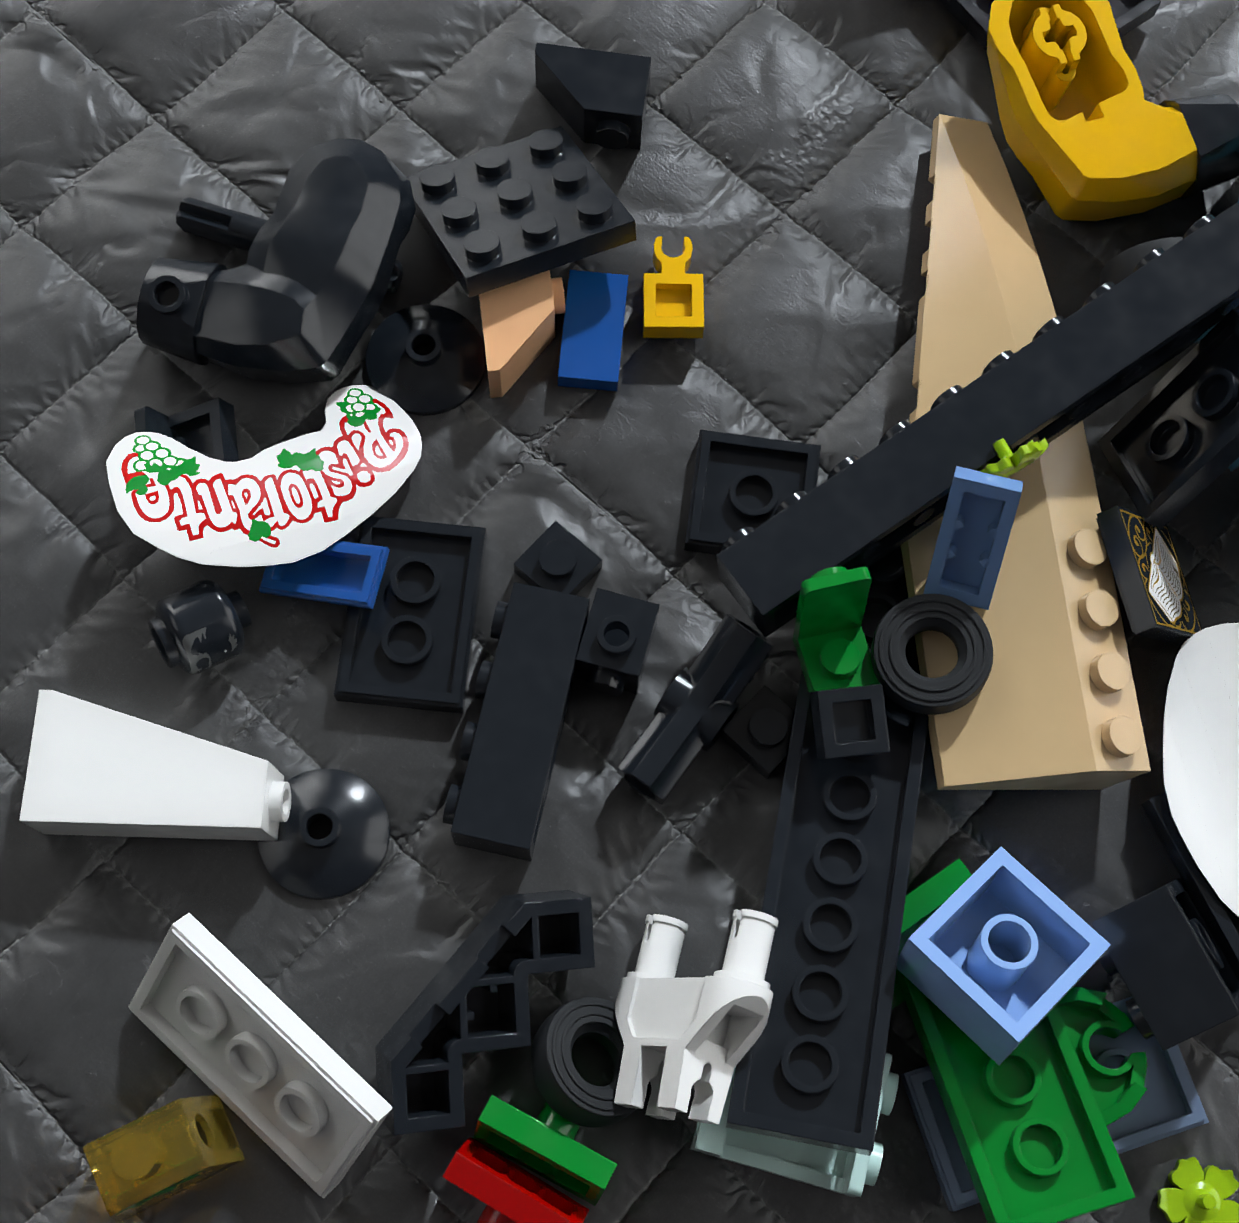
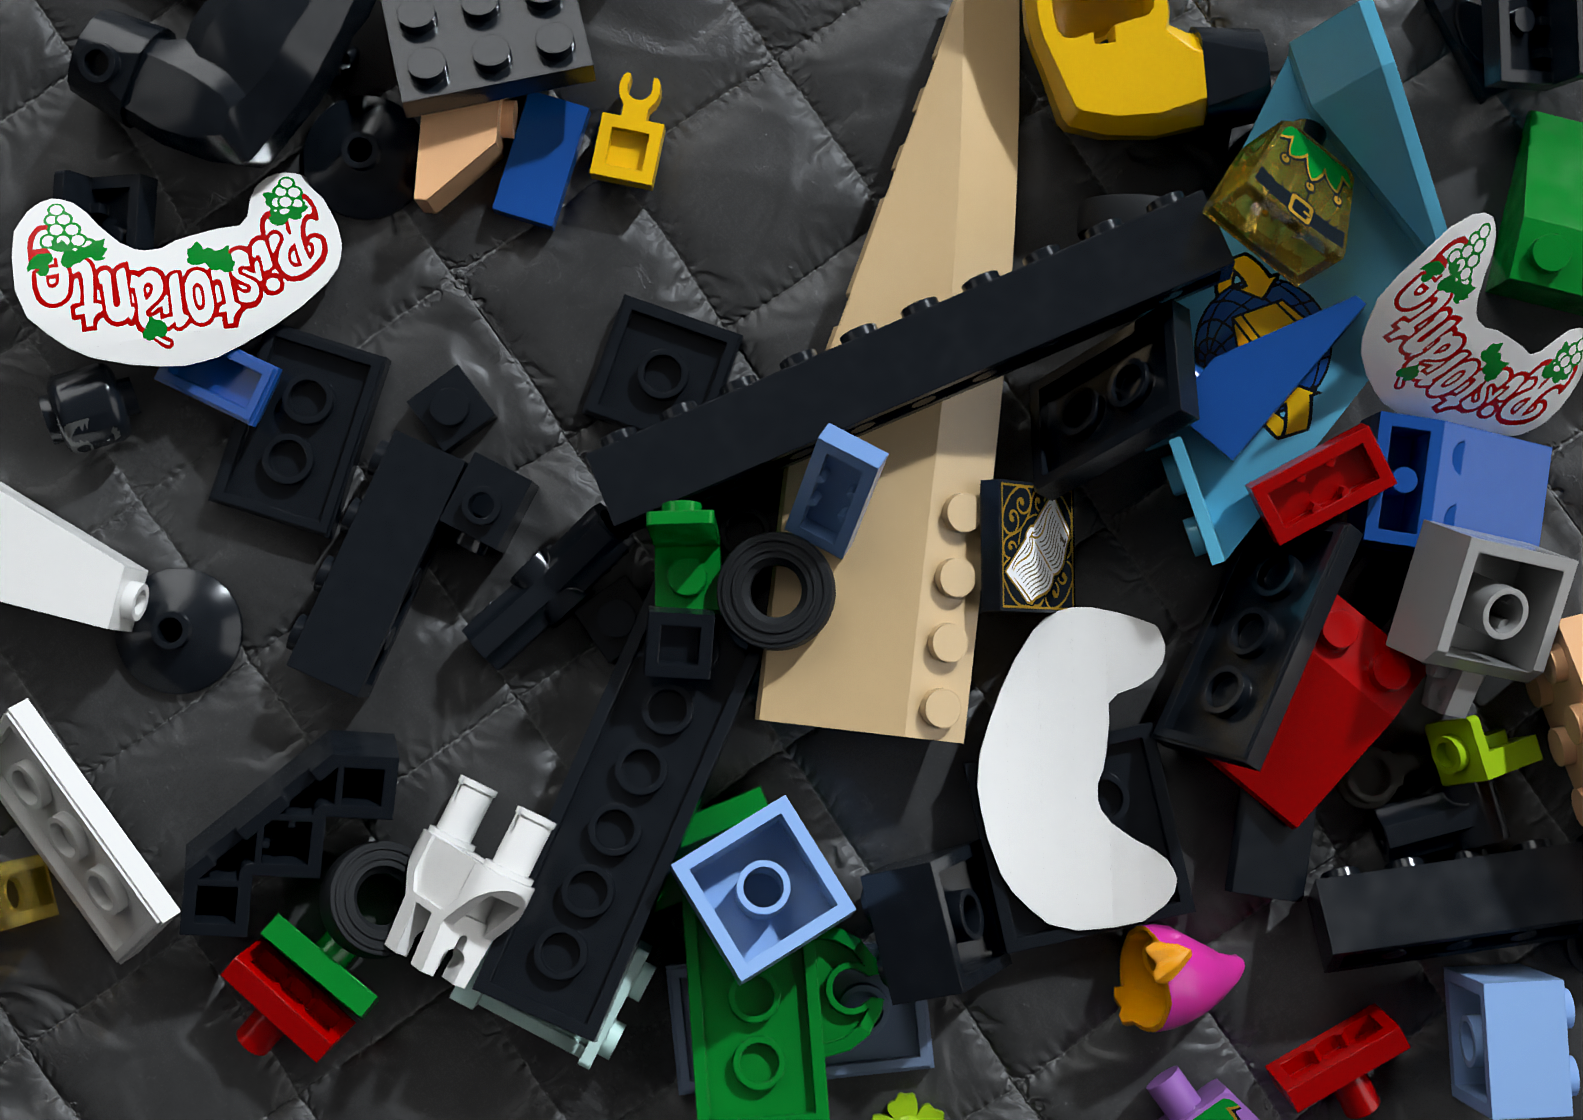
camera: 15 degrees right, 15 degrees up
(1014, 462) = (891, 424): lime plant -> none

